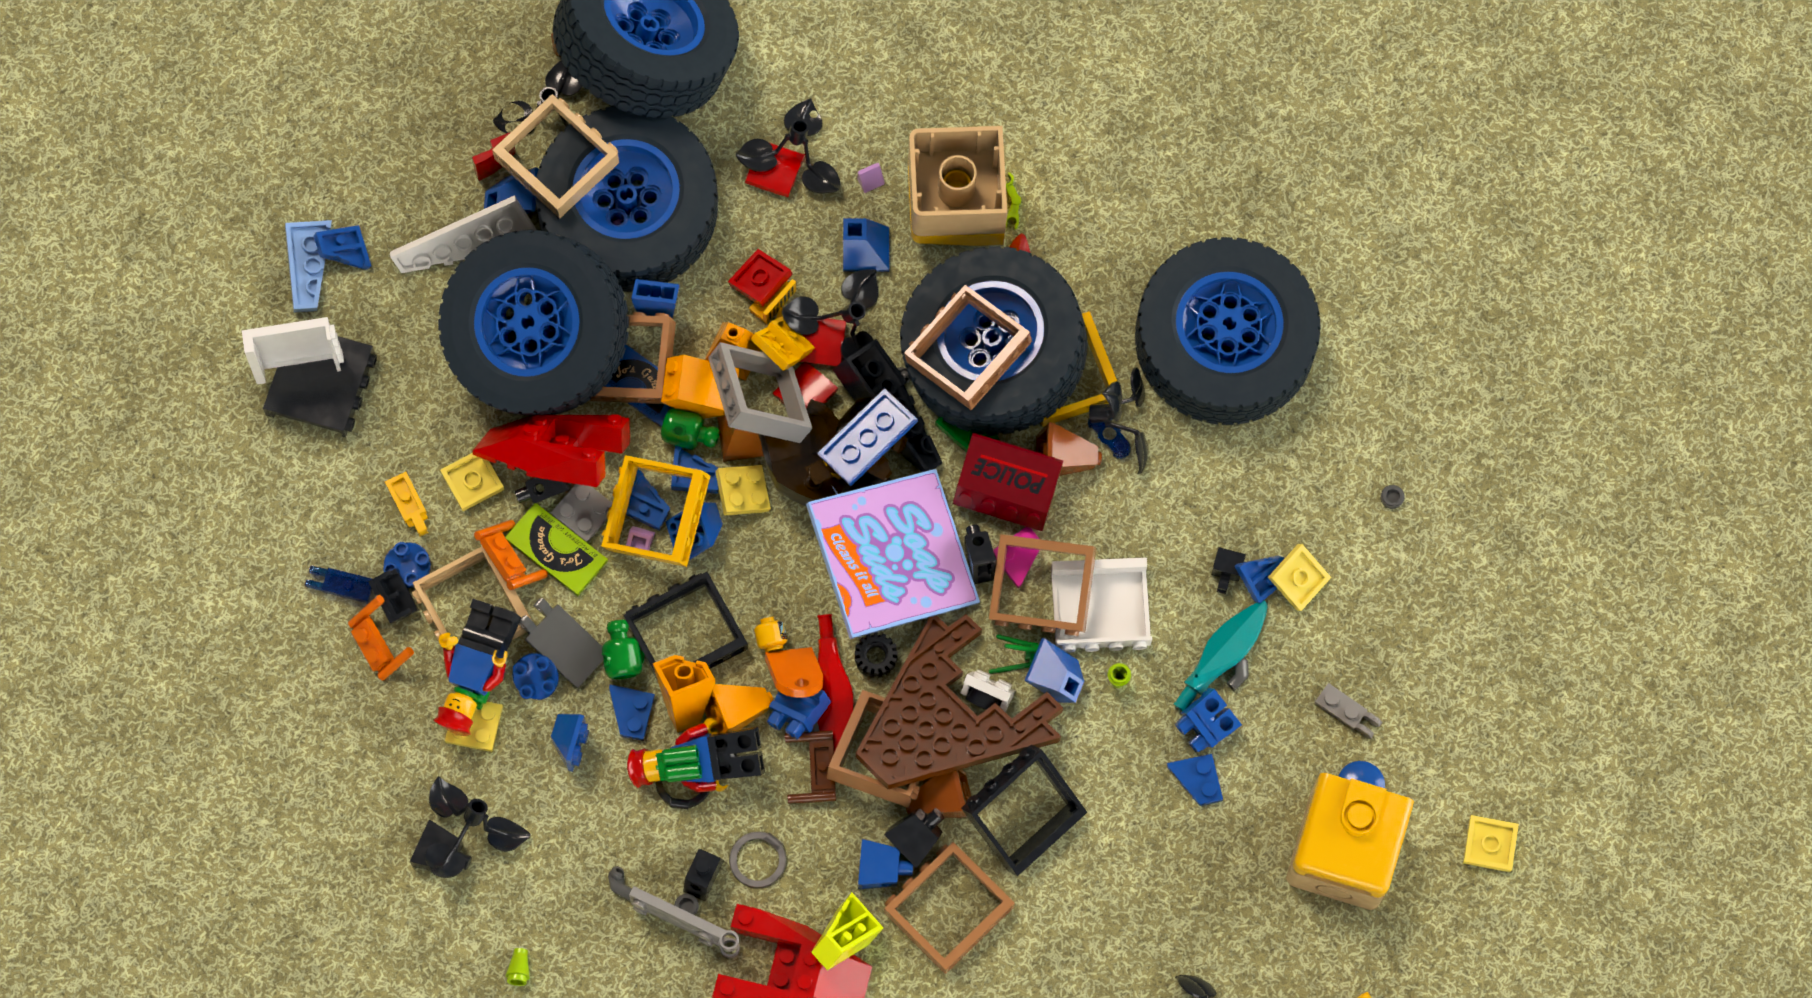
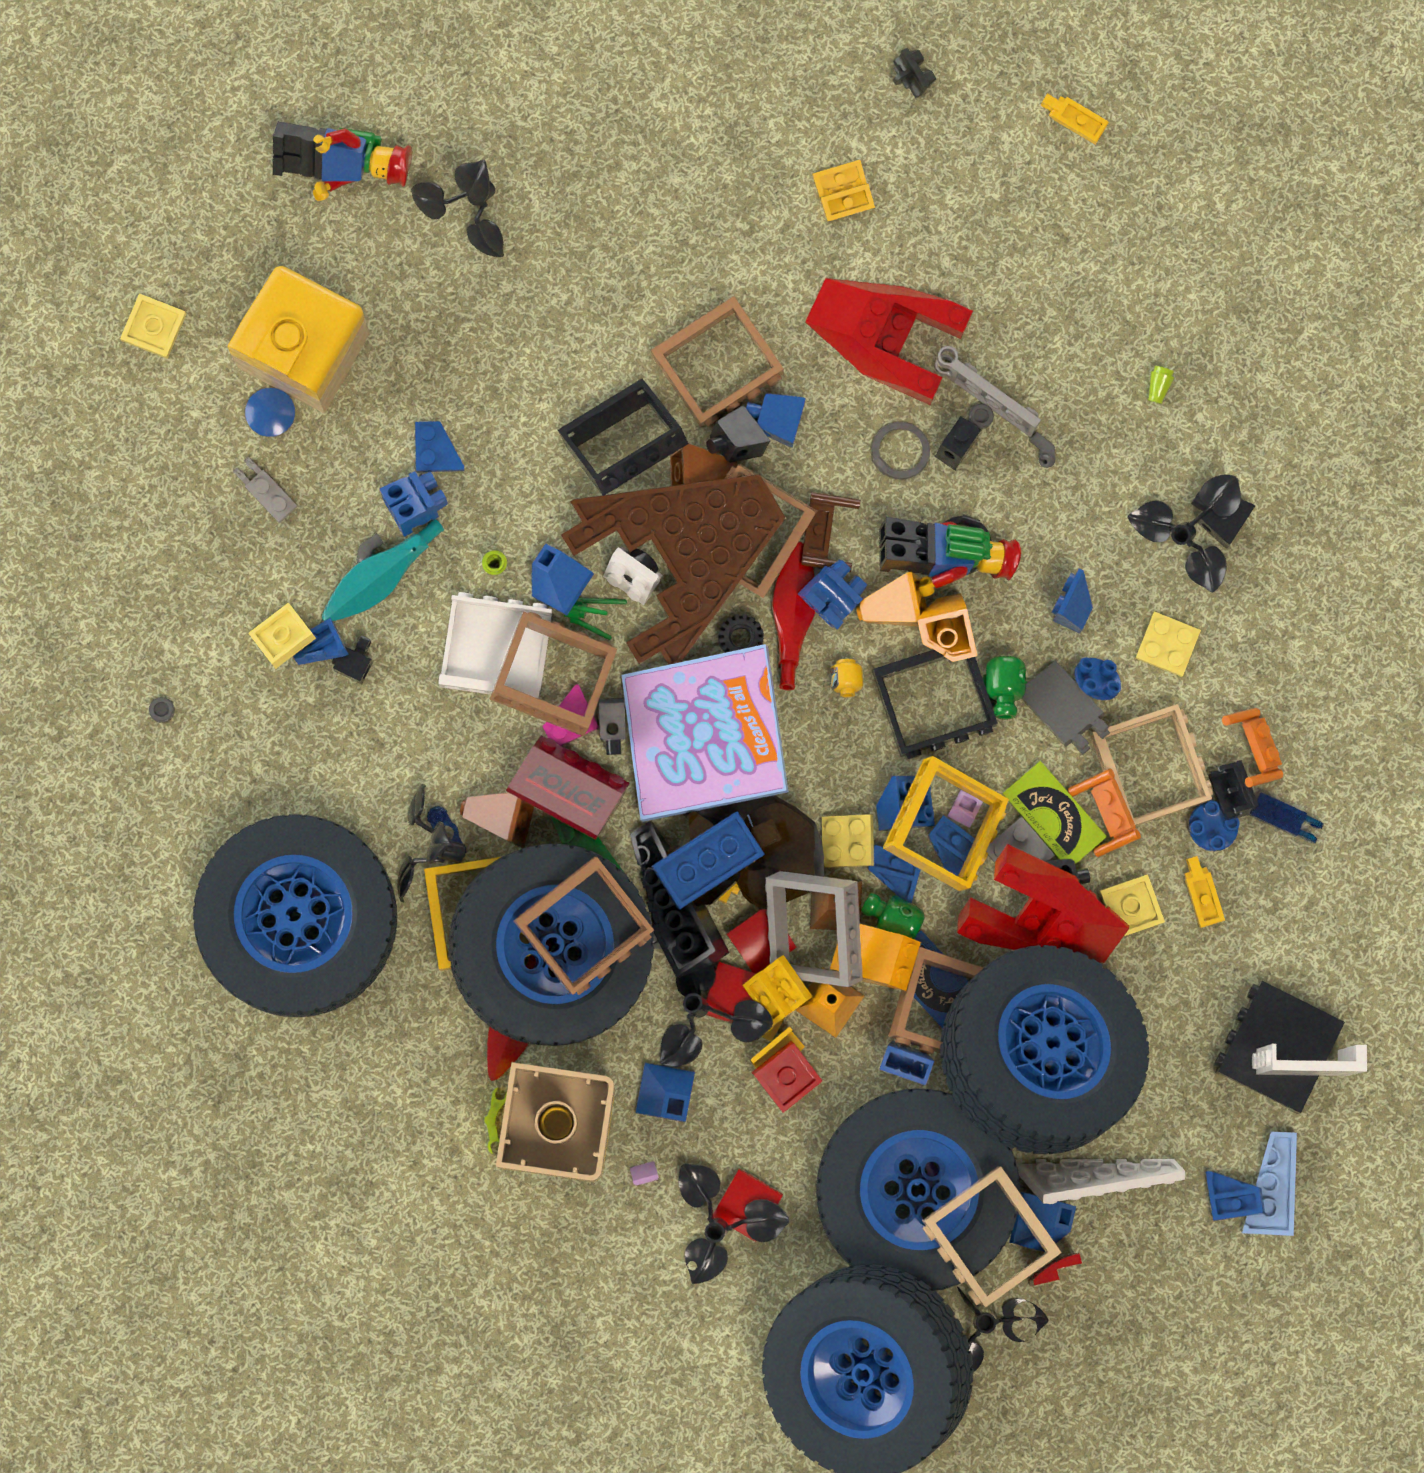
camera: 170 degrees left, 10 degrees up
(475, 663) = (1161, 690): piece -> none
(631, 711) = (1003, 627): blue wing -> none
(795, 672) = (829, 630): orange tile -> none
(846, 933) = (828, 348): neon yellow wedge -> none

